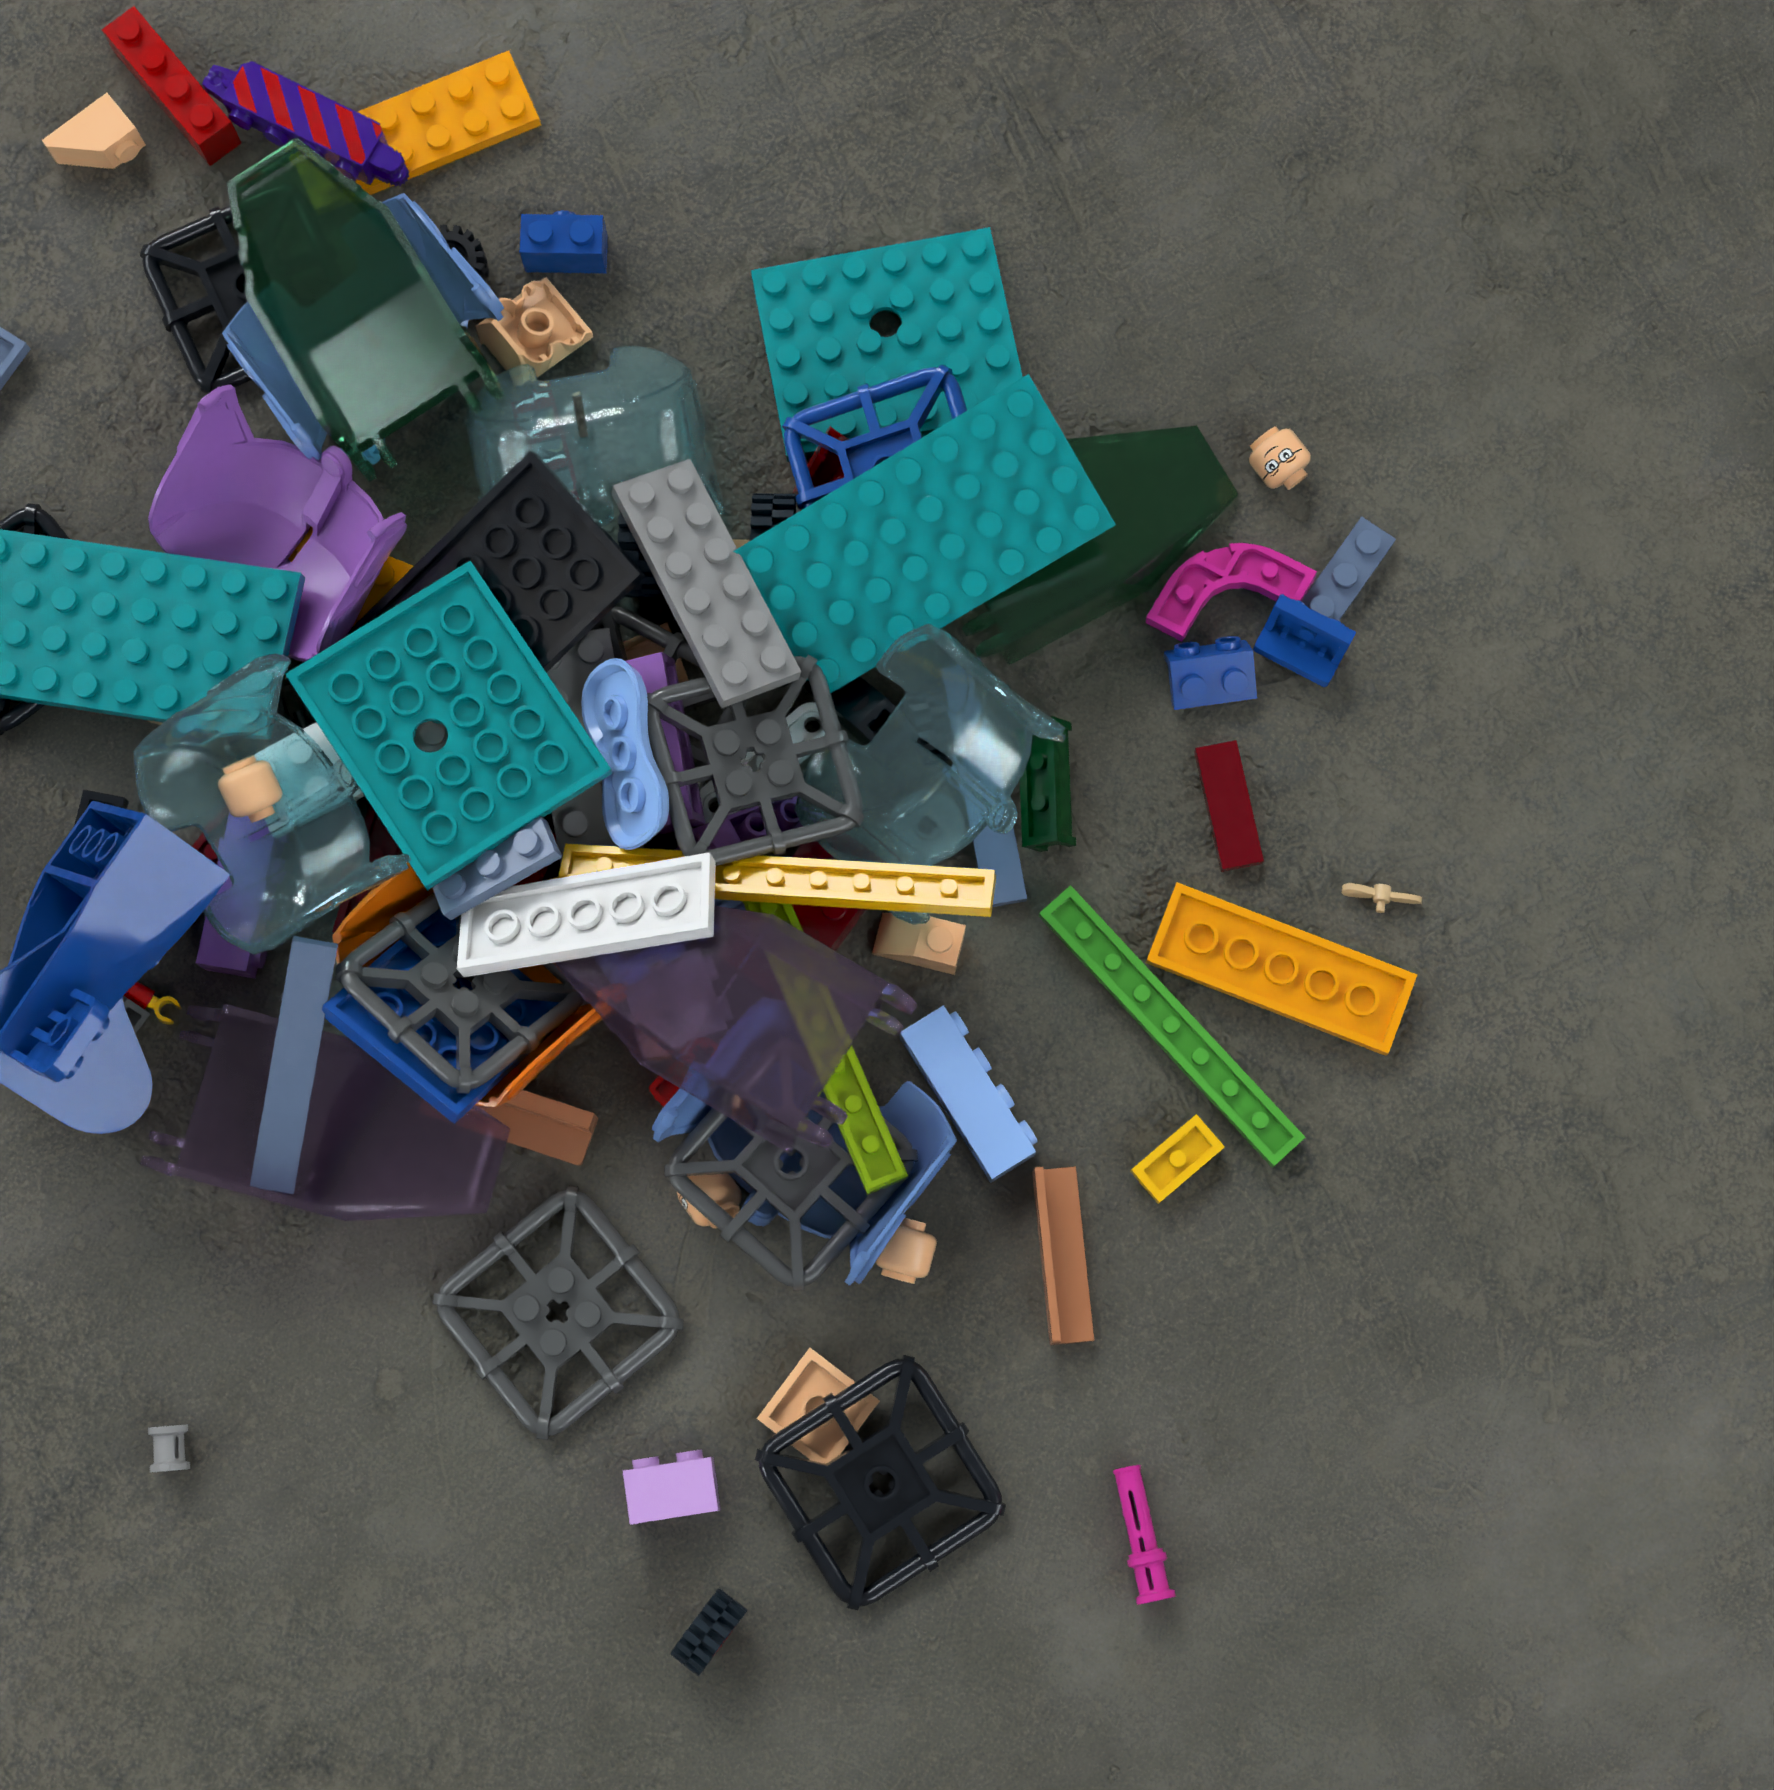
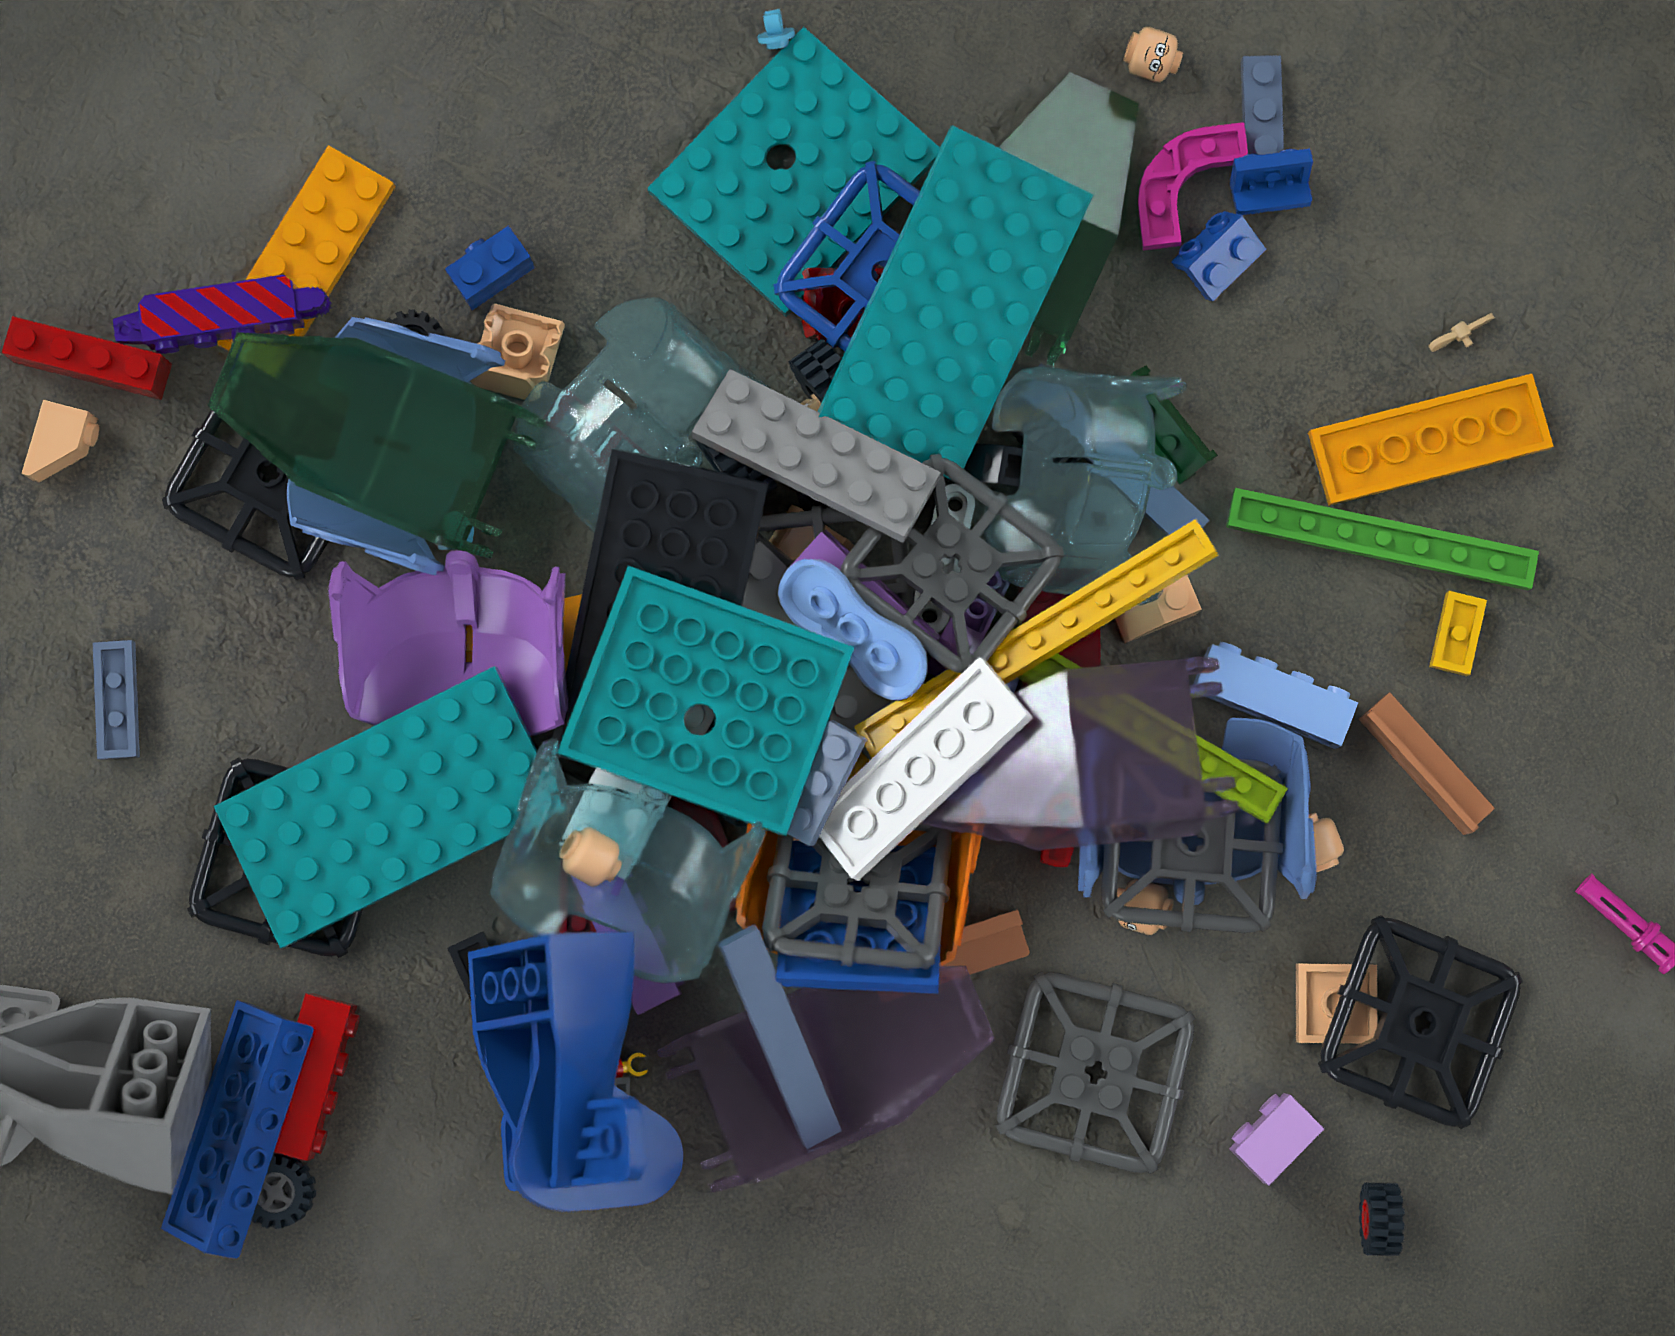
camera: 40 degrees left, 5 degrees up
(962, 211) = (775, 34): none -> medium azure plate
(1228, 806) = (1303, 345): dark red tile -> none

